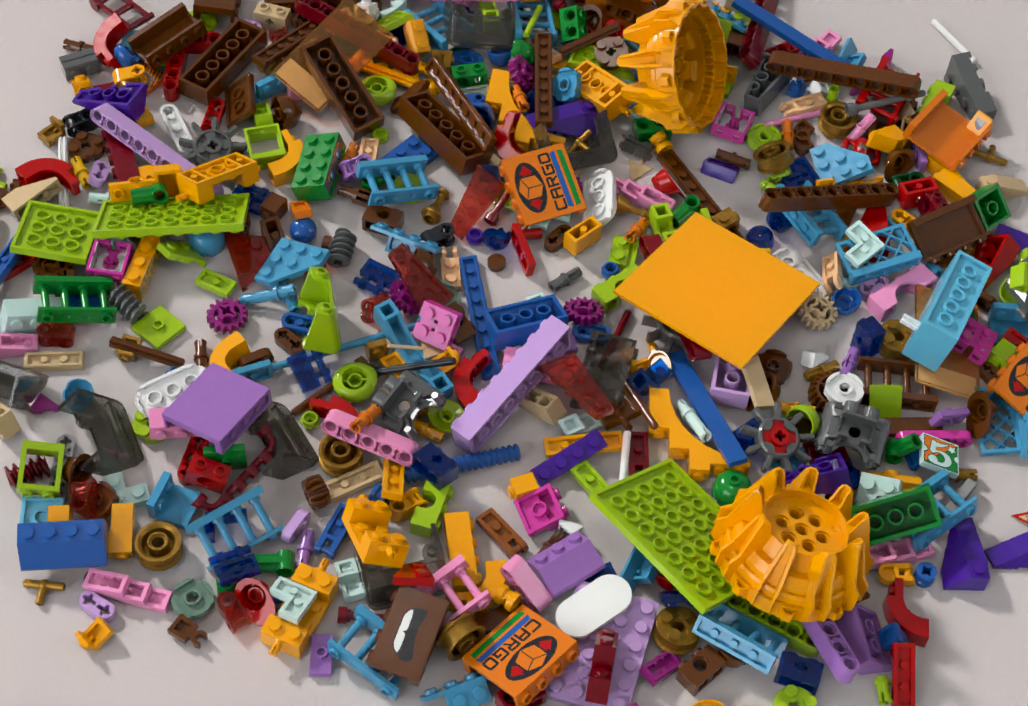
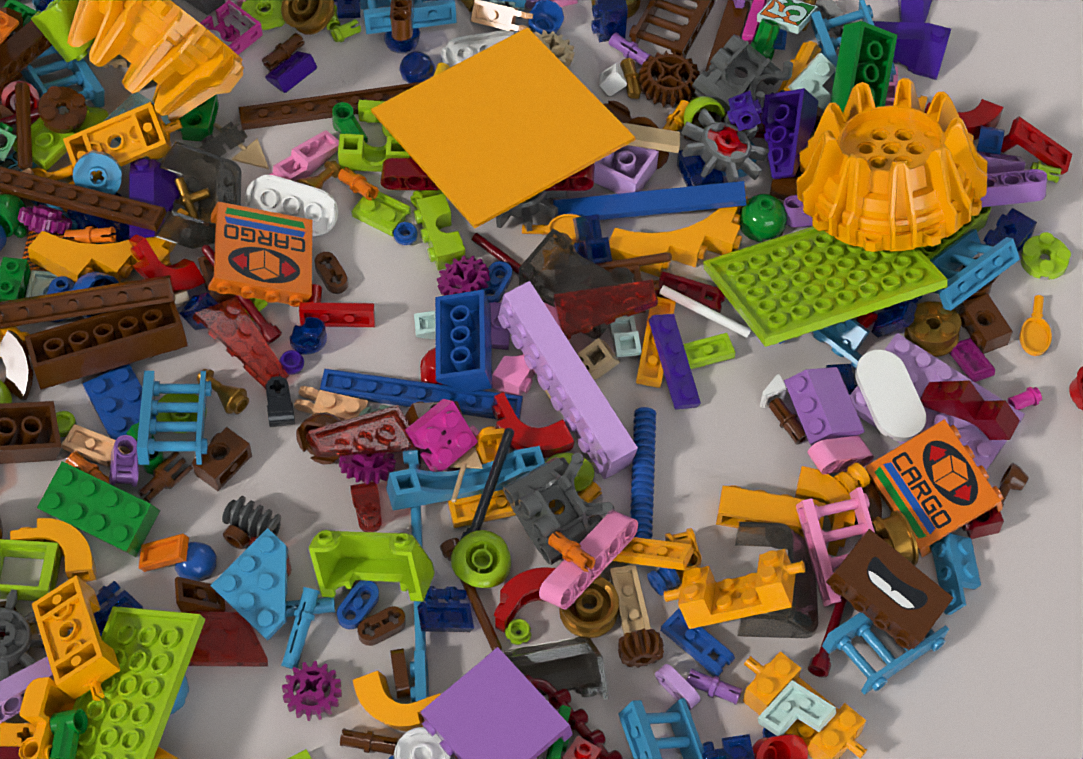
camera: 70 degrees left, 5 degrees up
(181, 252) = (182, 724): lime wing -> none
(216, 283) = (246, 693): lime plate -> none
(273, 206) = (143, 586): reddish brown brick -> none
(281, 563) = (727, 720): green piece -> none
(320, 658) = (870, 706): medium lavender plate -> none
(349, 580) = (765, 647): light aqua slope -> none
(376, 349) = (436, 525): pearl gold bracket -> none
(378, 273) = (311, 487): clear blue plate -> none
(397, 236) = (279, 443): dark azure bracket -> none
(414, 575) = (821, 556): red wing -> none
(424, 517) = (679, 512): lime arch -> none
(435, 466) = (655, 498): clear blue brick -> none
(496, 262) = (342, 351): reddish brown tile -> none
(501, 533) = (753, 464): dark orange plate -> none
(521, 485) = (700, 421): light orange brick -> none
(541, 510) = (737, 411): dark pink plate -> none
(564, 279) = (400, 285): dark grey axle -> none
(582, 235) = (346, 241): light orange brick -> none
(660, 142) = (228, 113): light orange wheel -> none
(665, 184) = (298, 129): red piece -> none
(690, 417) = (668, 219): light aqua pin -> none
(727, 218) = (380, 87): pearl gold bracket -> none
(810, 438) = (744, 111): none -> dark purple brick
(849, 381) = (674, 72): white plate -> none
(886, 399) = (698, 34): lime piece -> none
(925, 580) = (923, 83): blue wheel -> none

